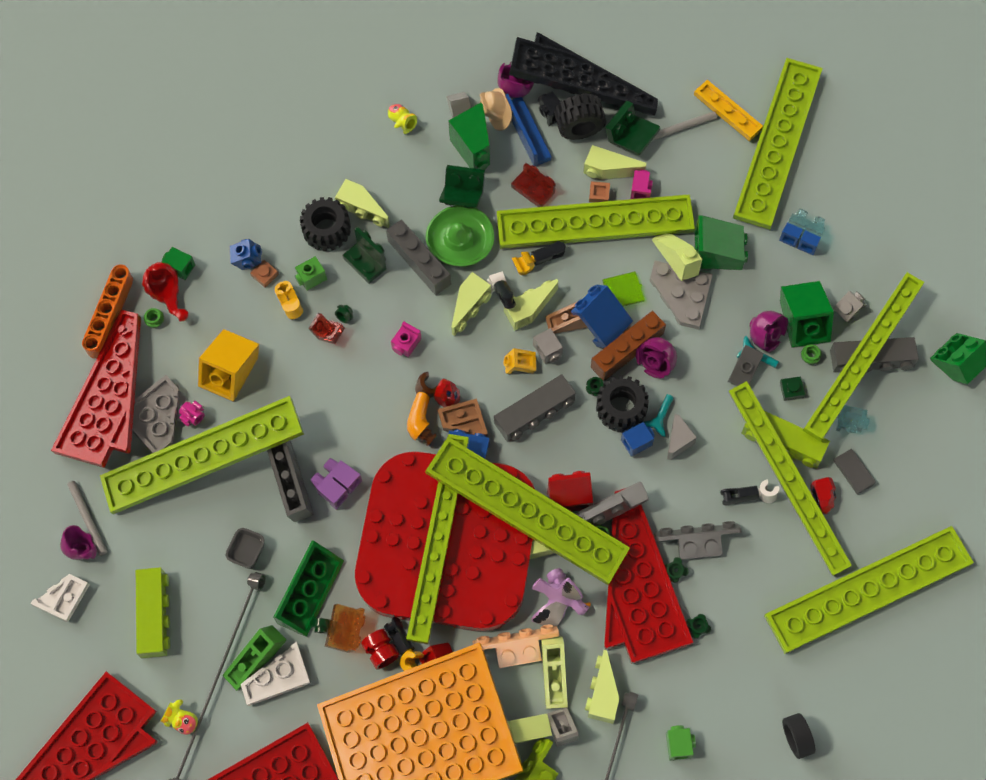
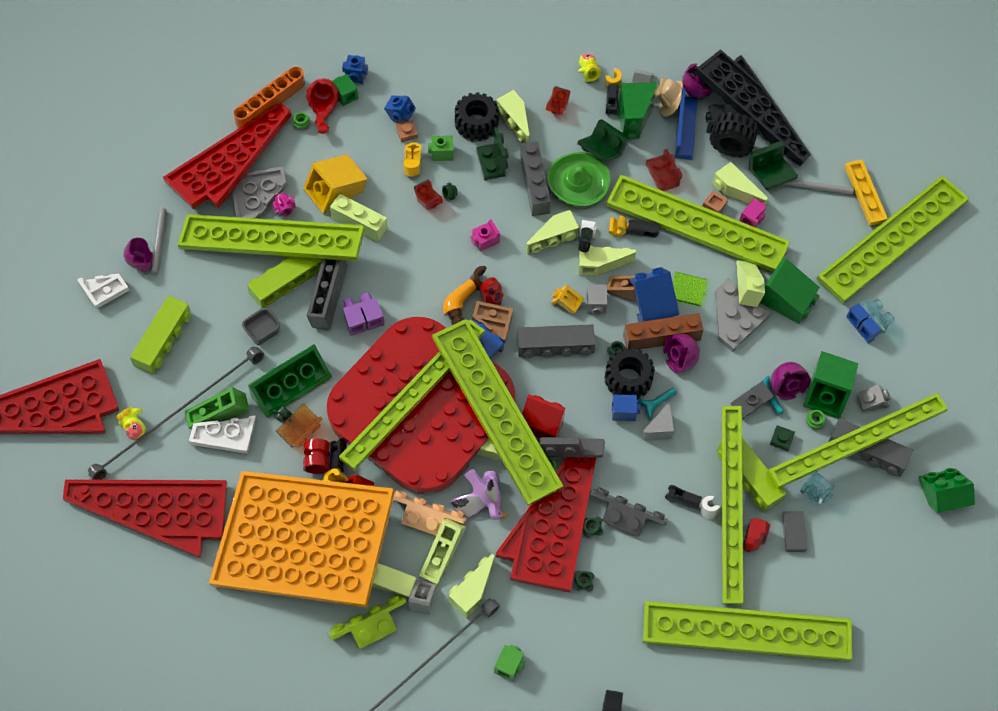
camera: 25 degrees right, 5 degrees down
(176, 235) = (355, 68): none -> blue brick
(236, 490) = (282, 279): none -> lime brick
(273, 387) = (350, 212): none -> yellowish green brick
(393, 166) = (558, 100): none -> clear red bracket
(438, 130) = (613, 91): none -> black piece

